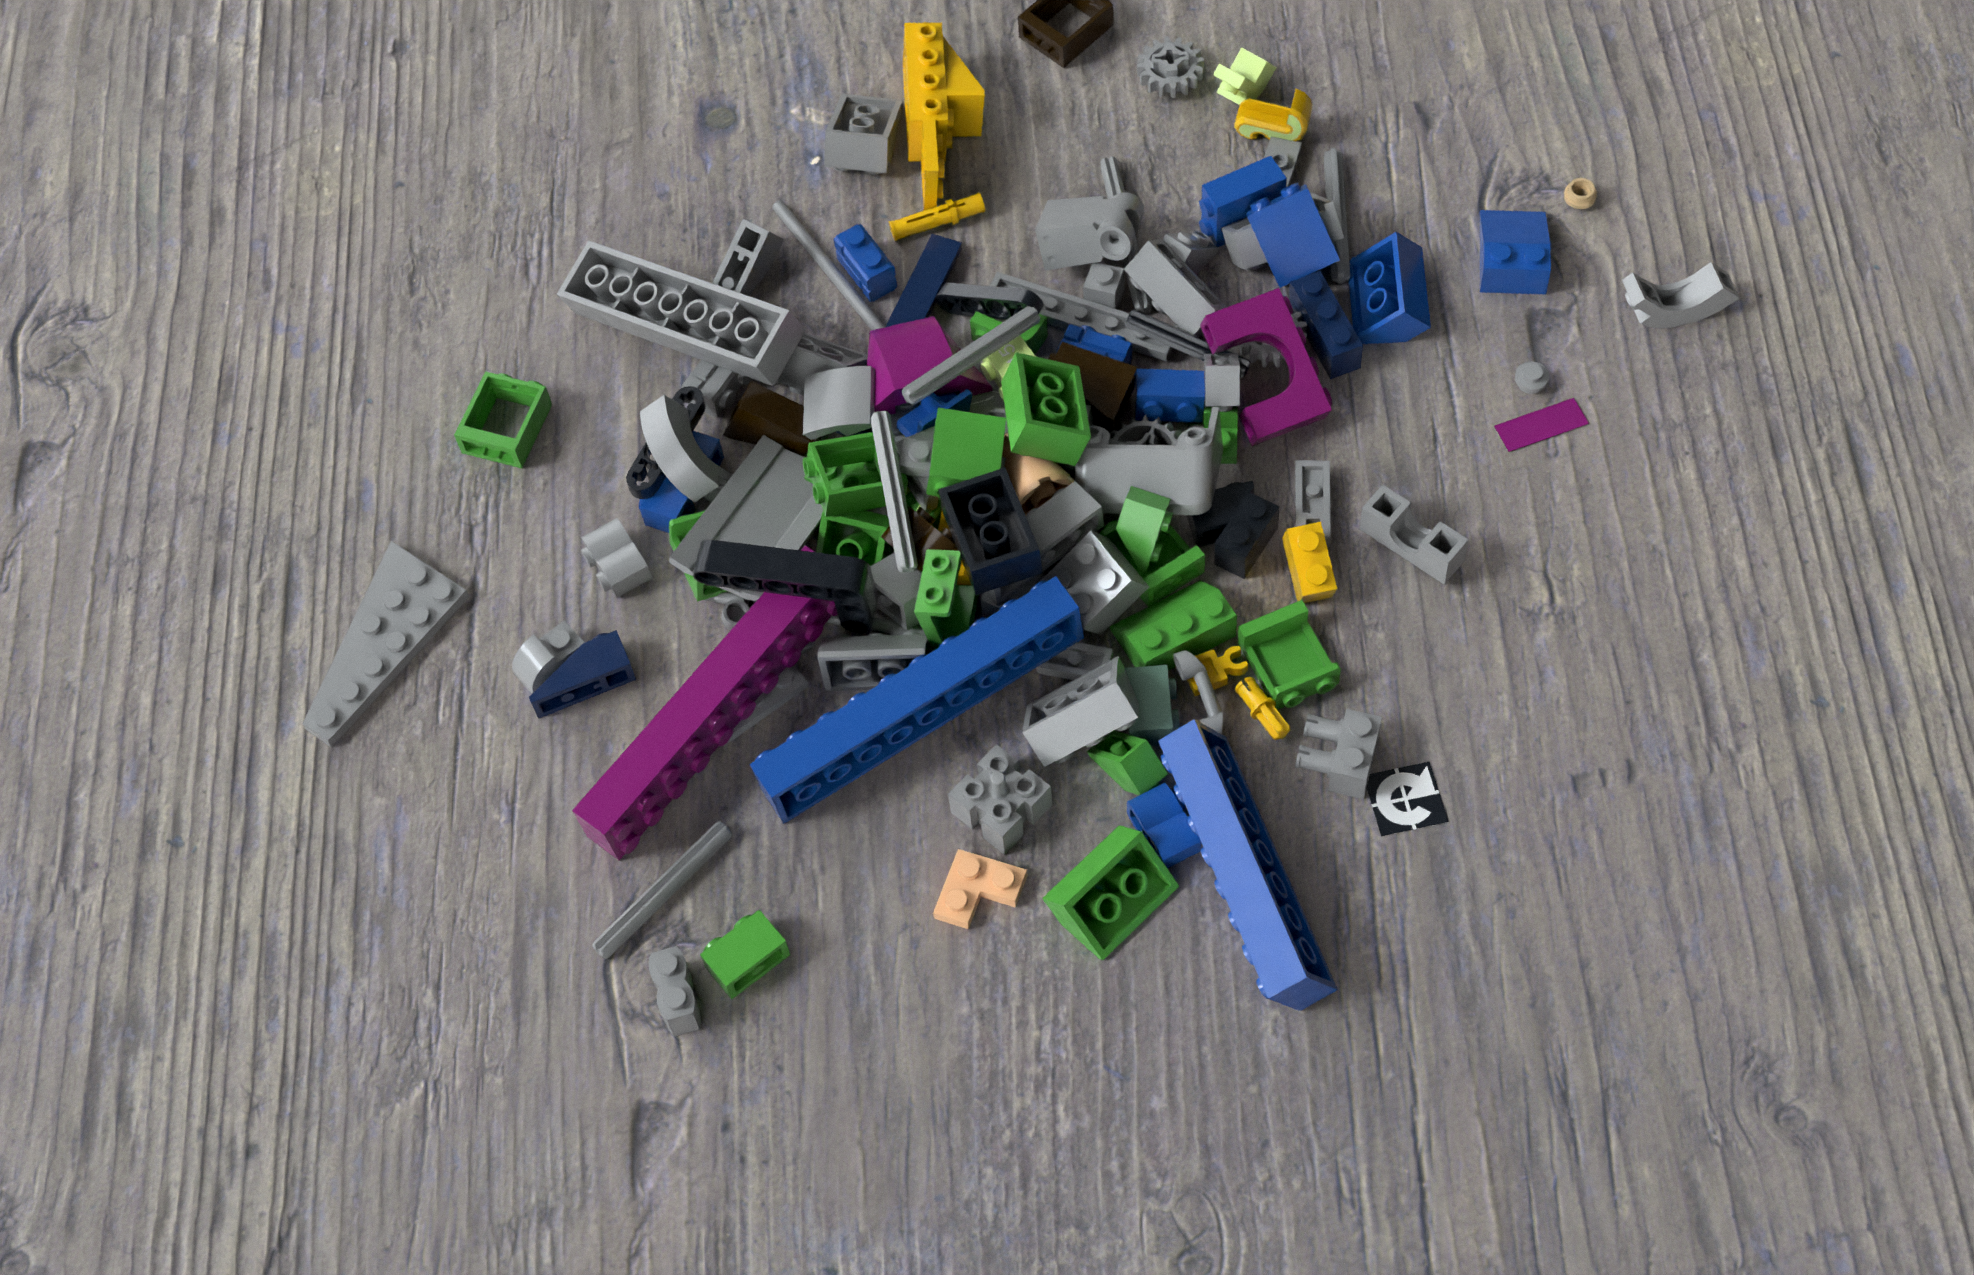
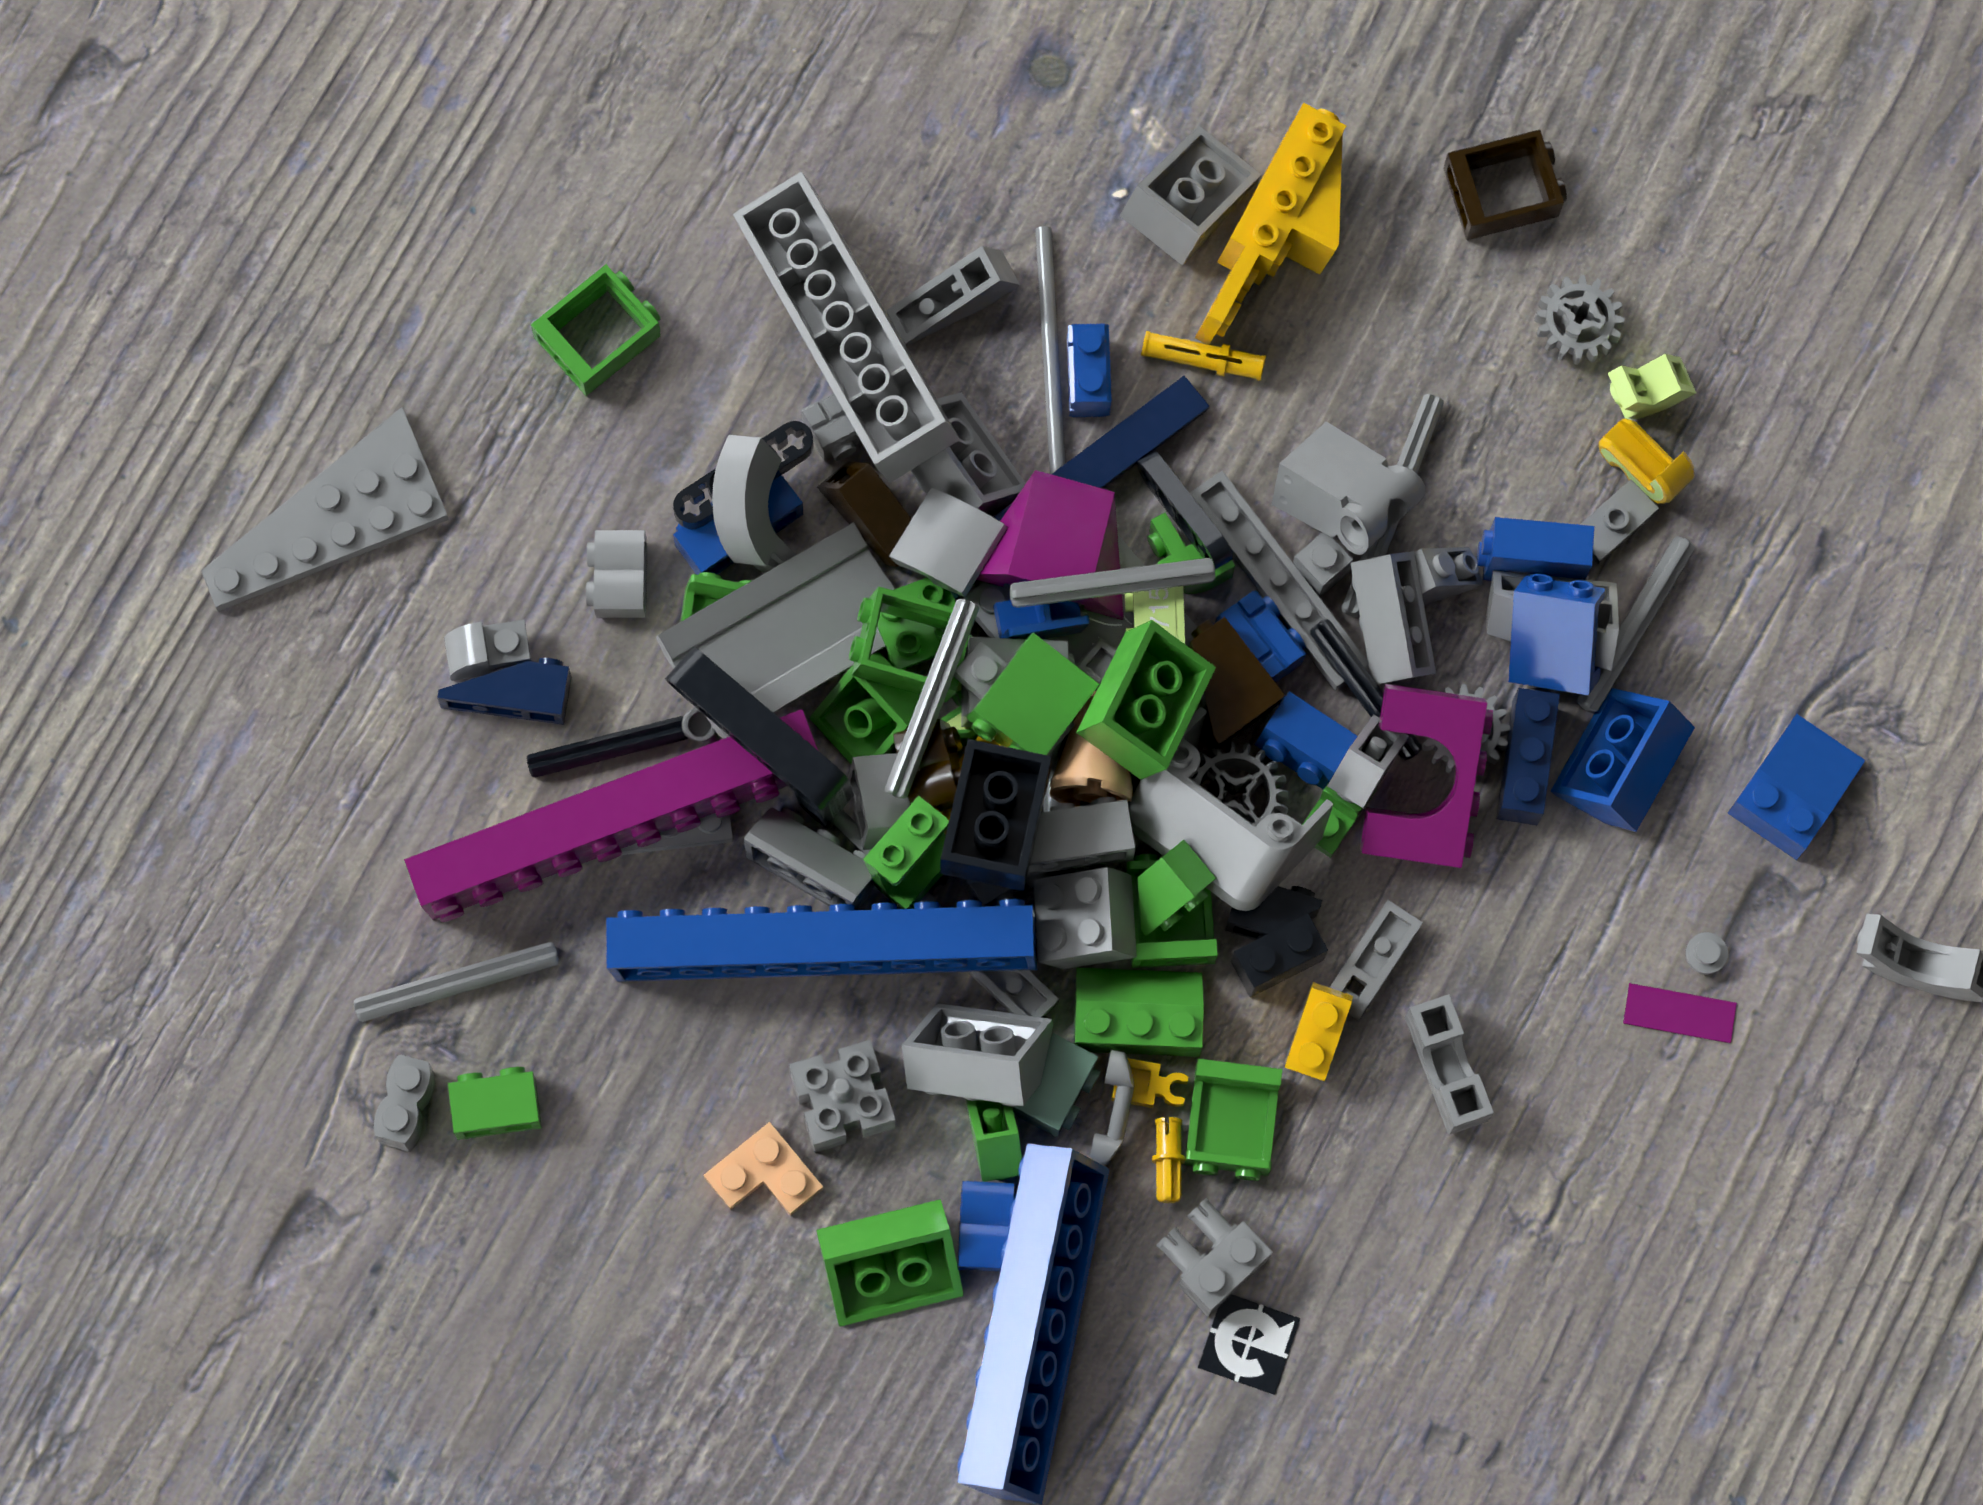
camera: 20 degrees right, 15 degrees up
(673, 676) = (606, 747): none -> black axle
(1580, 187) = (1925, 755): tan plate -> none

